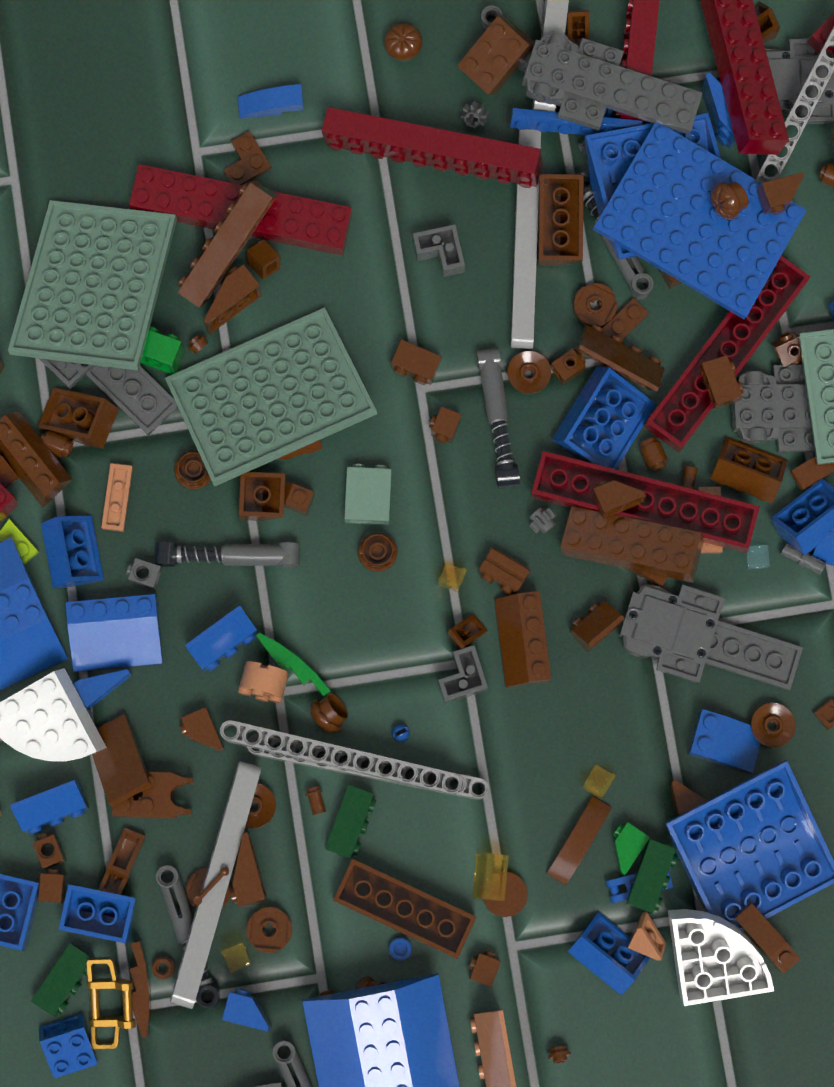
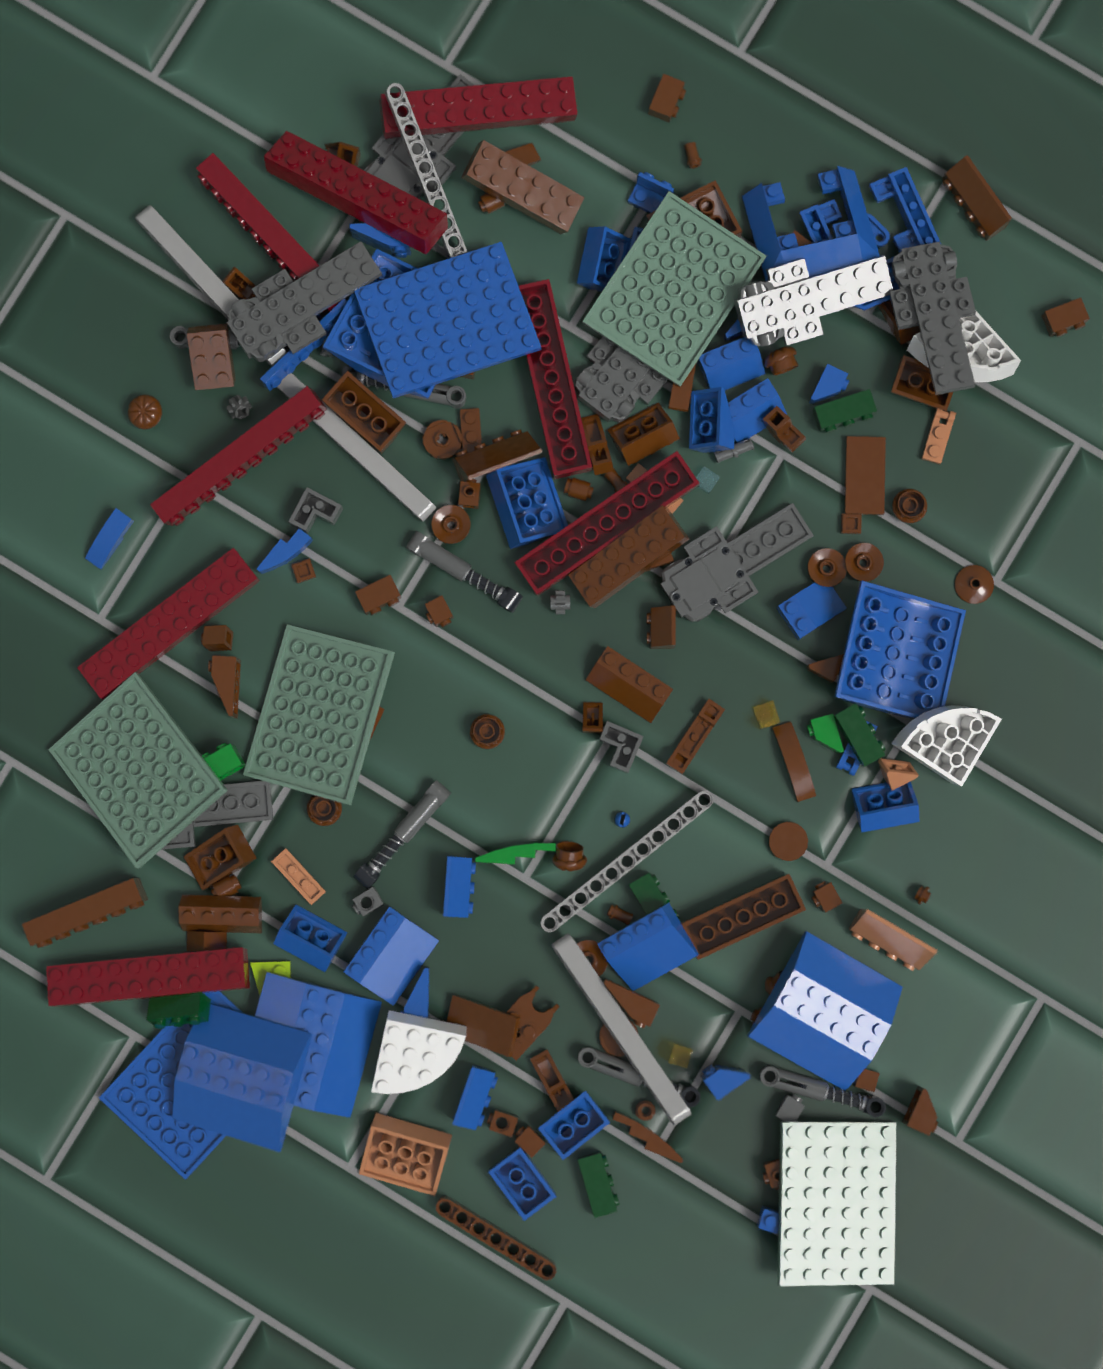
camera: 45 degrees left, 5 degrees up
(67, 1045) = (643, 1217): blue bracket -> none
(94, 984) = (660, 1166): pearl gold bar -> none
(197, 343) = (238, 732): reddish brown plate -> none
(197, 900) = (622, 1050): reddish brown hinge -> none
(201, 729) = (507, 951): reddish brown slope -> none
(227, 243) = (188, 654): reddish brown brick -> none
(252, 162) = (140, 587): reddish brown plate -> none
(259, 938) = (691, 1018): reddish brown plate -> none
(261, 496) = (383, 777): reddish brown slope -> none
(263, 682) = (511, 883): nougat brick -> none
(298, 498) = (398, 758): reddish brown slope -> none
(307, 848) = (648, 947): none -> blue slope
(329, 757) = (617, 872): light grey beam -> none
(368, 494) = (442, 704): sand green brick -> none
(382, 284) = (304, 571): none -> reddish brown tile
(383, 254) = (285, 552): none -> blue slope
(400, 949) = (765, 941): blue tile -> none
(452, 577) = (547, 695): clear yellow panel -> none
(490, 876) = (769, 841): clear yellow panel -> none
(503, 571) = (572, 657): reddish brown brick -> none
(526, 735) = (695, 736): none -> reddish brown slope
(616, 497) = (589, 541): reddish brown slope -> none
(704, 437) = (597, 445): none -> reddish brown slope
(721, 382) = (570, 402): reddish brown brick -> none
(728, 199) = (452, 289): reddish brown piece -> none
(767, 938) = (963, 694): reddish brown slope -> none
(778, 193) = (476, 251): reddish brown slope -> none
(787, 349) = (584, 336): reddish brown brick -> none
(816, 749) = (872, 558): none -> reddish brown dish

